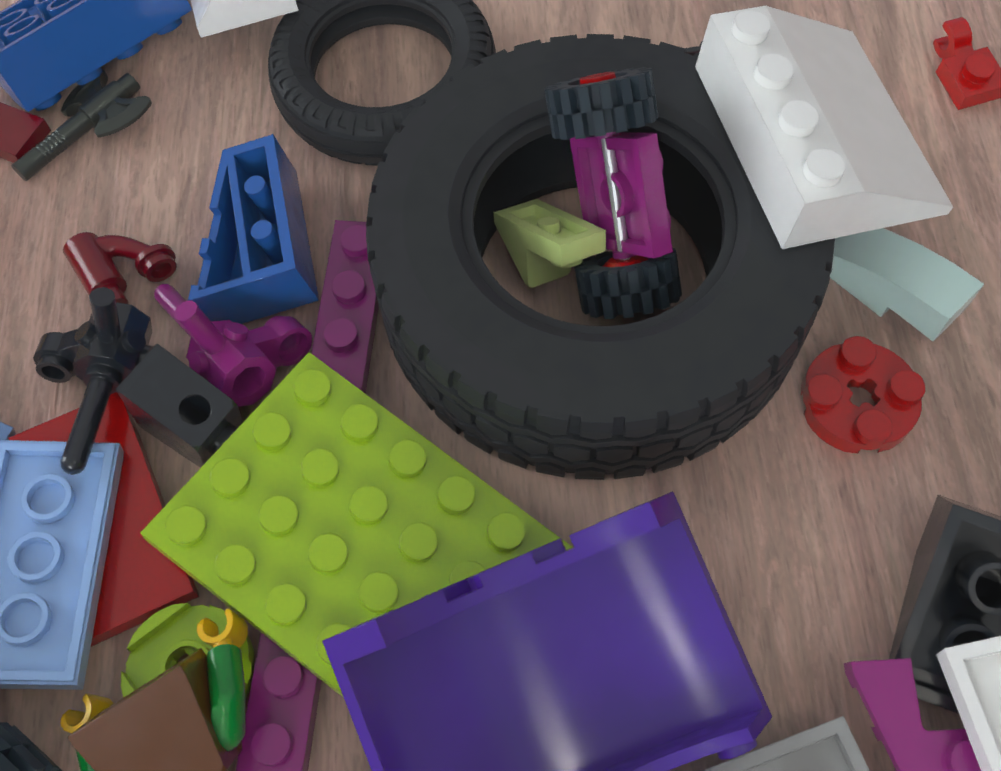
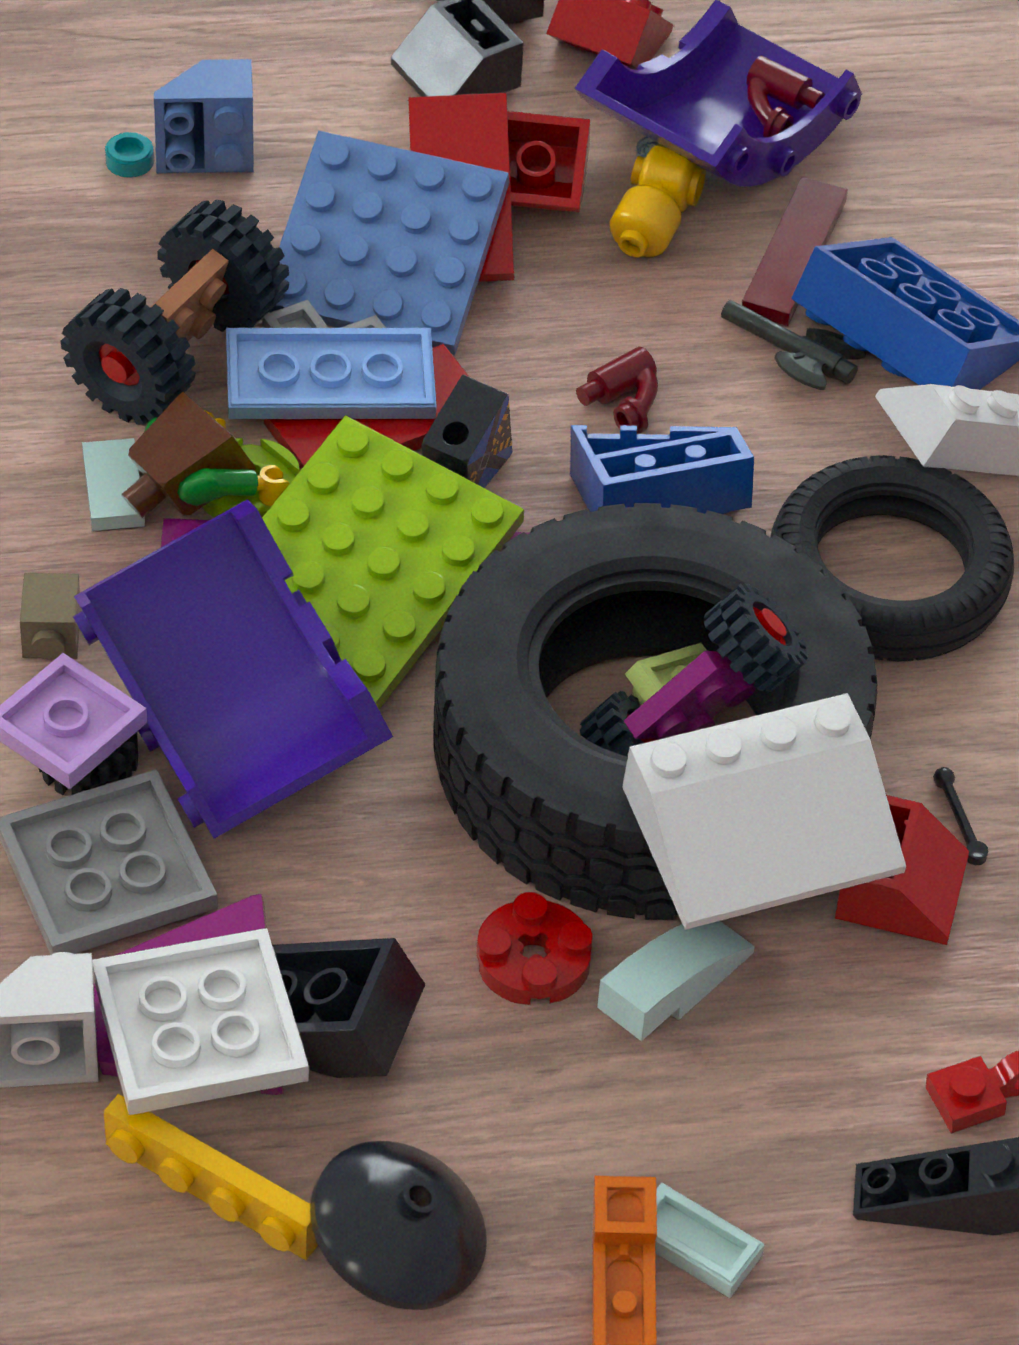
camera: 80 degrees right, 15 degrees down
(99, 354) = (532, 386): black piece -> none
(229, 354) = (527, 465): magenta piece -> none

